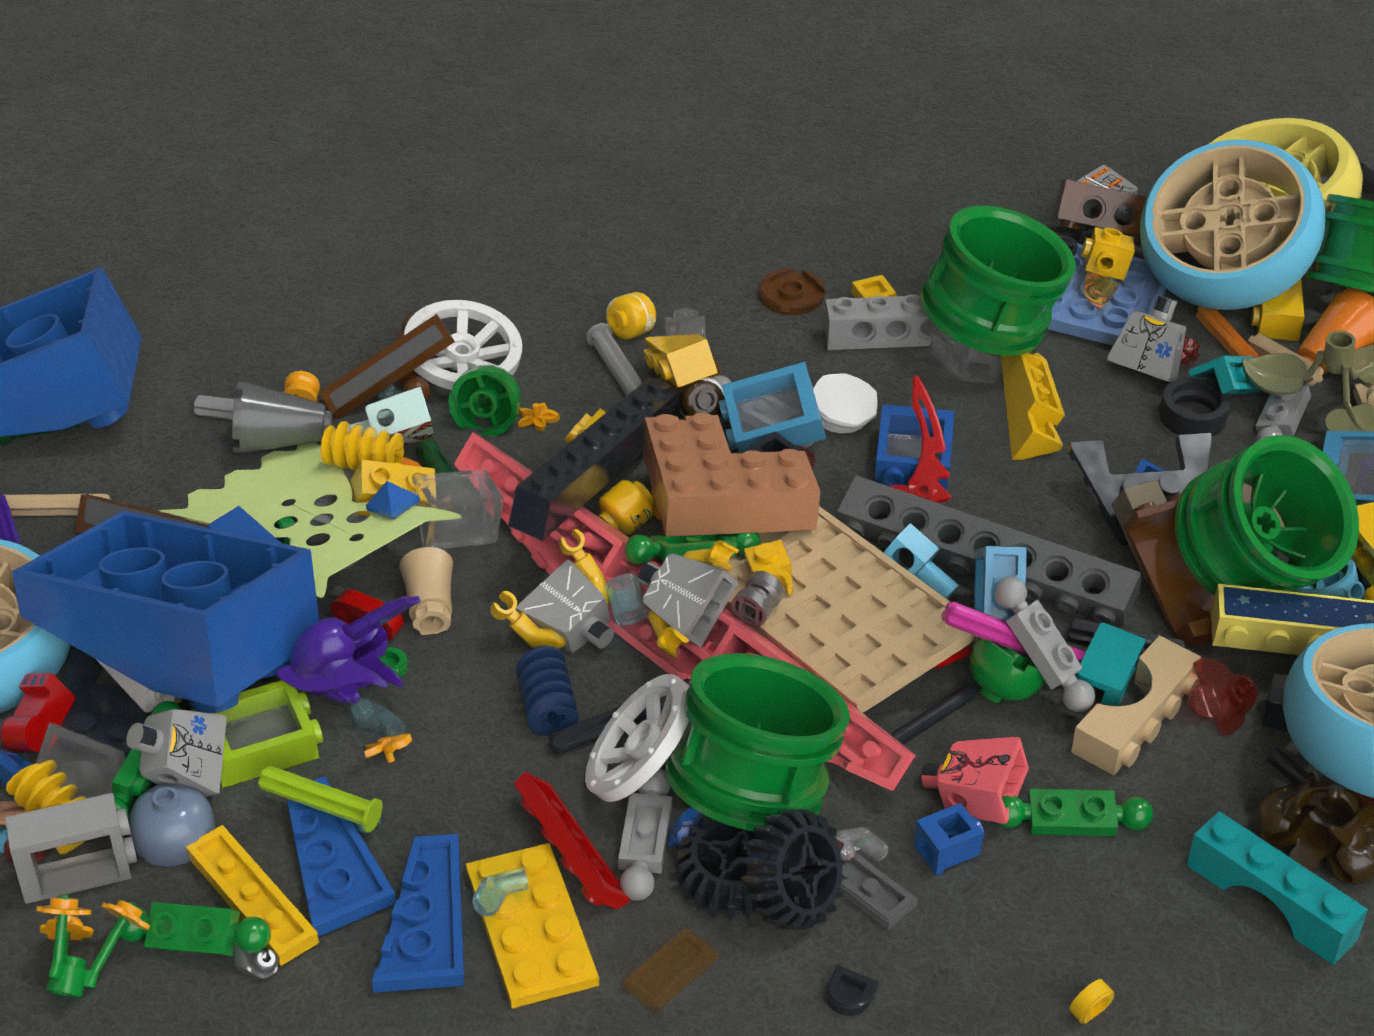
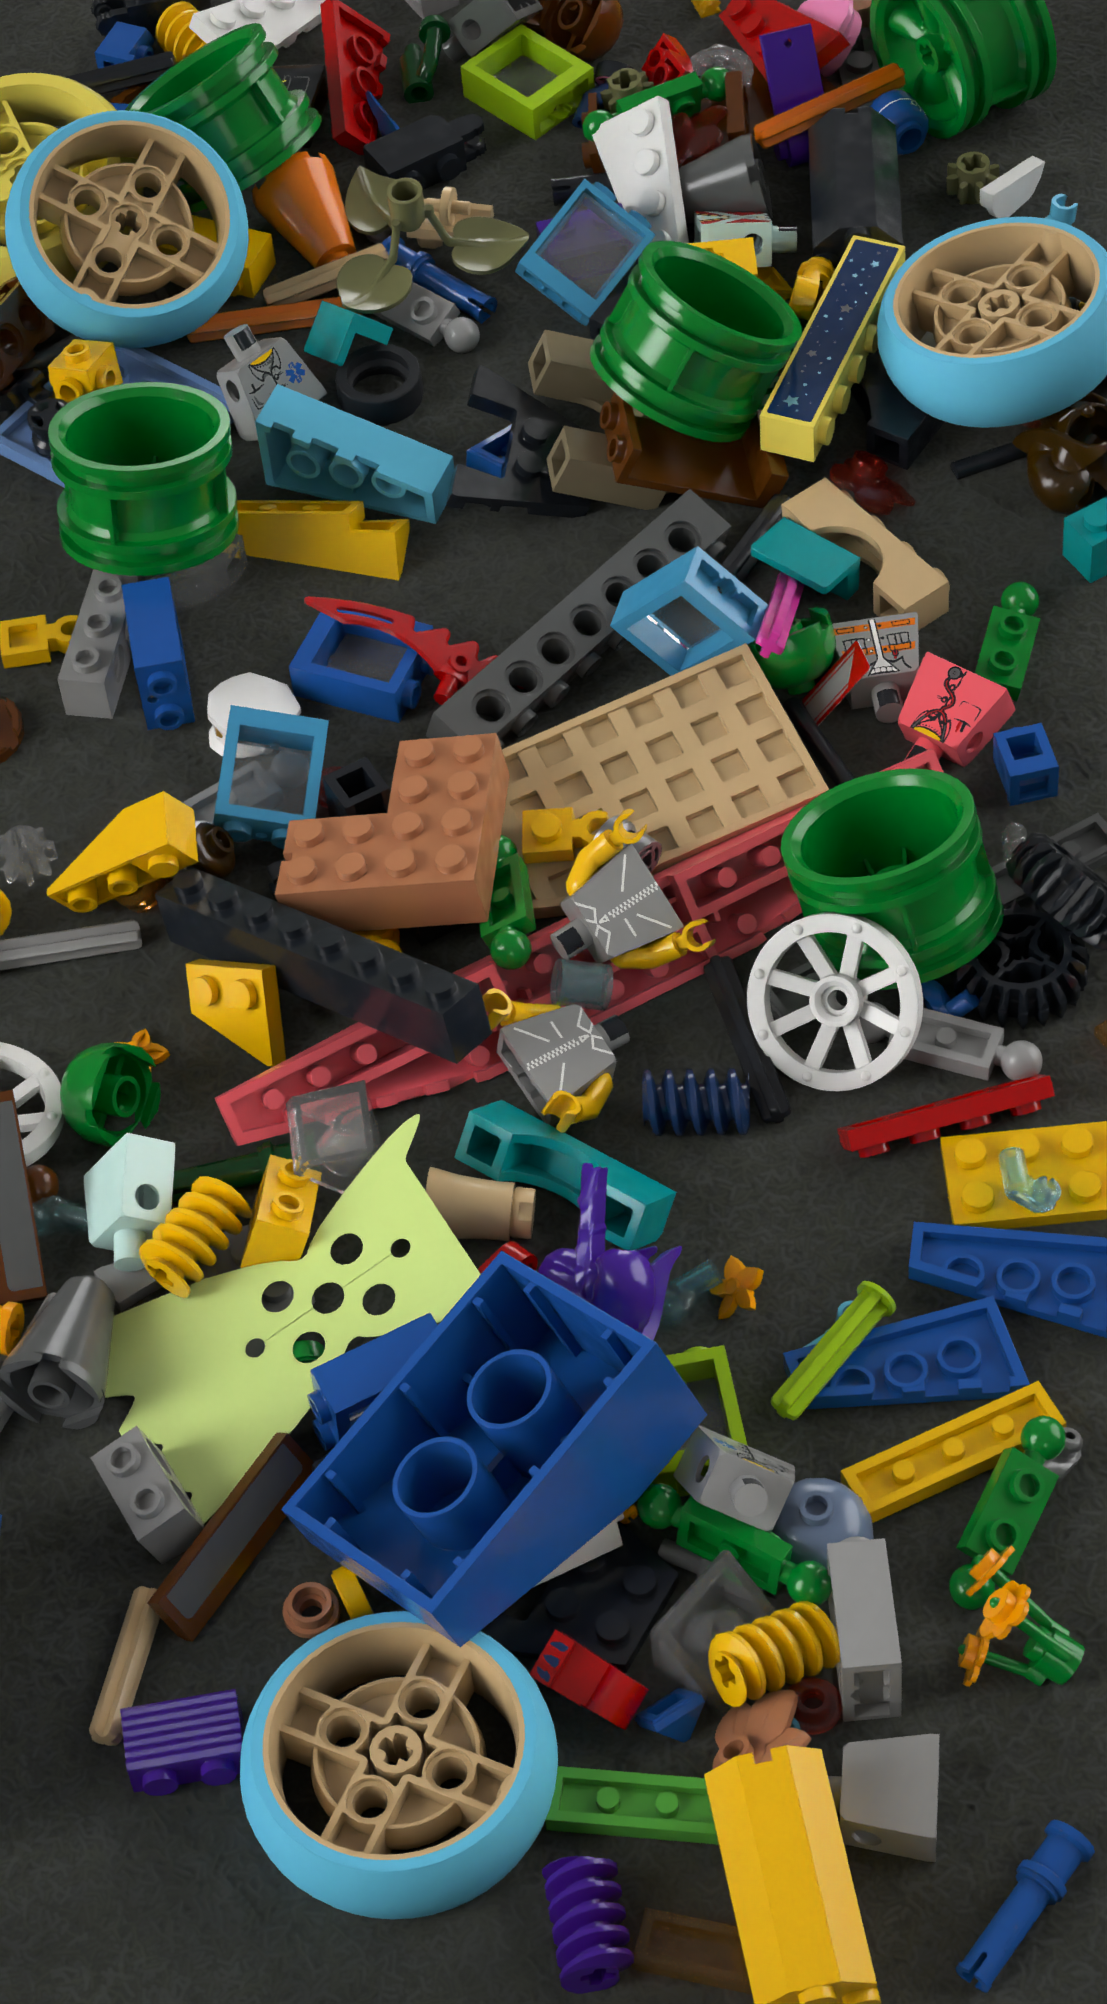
camera: 70 degrees left, 10 degrees up
(173, 485) = (149, 1495): none -> light grey brick
(392, 501) = (346, 1198): blue slope -> none
(442, 661) = (524, 1149): none -> teal arch
(870, 339) = (158, 653): none -> blue window
(923, 567) = (581, 689): medium azure piece -> none
(985, 702) = (836, 683): none -> sticker
(1037, 722) = (893, 657): none -> light grey torso
(1044, 644) = (794, 590): light grey plate -> none
(1102, 393) = (347, 458): none -> medium azure wedge
(1327, 399) = (442, 283): none -> blue pin

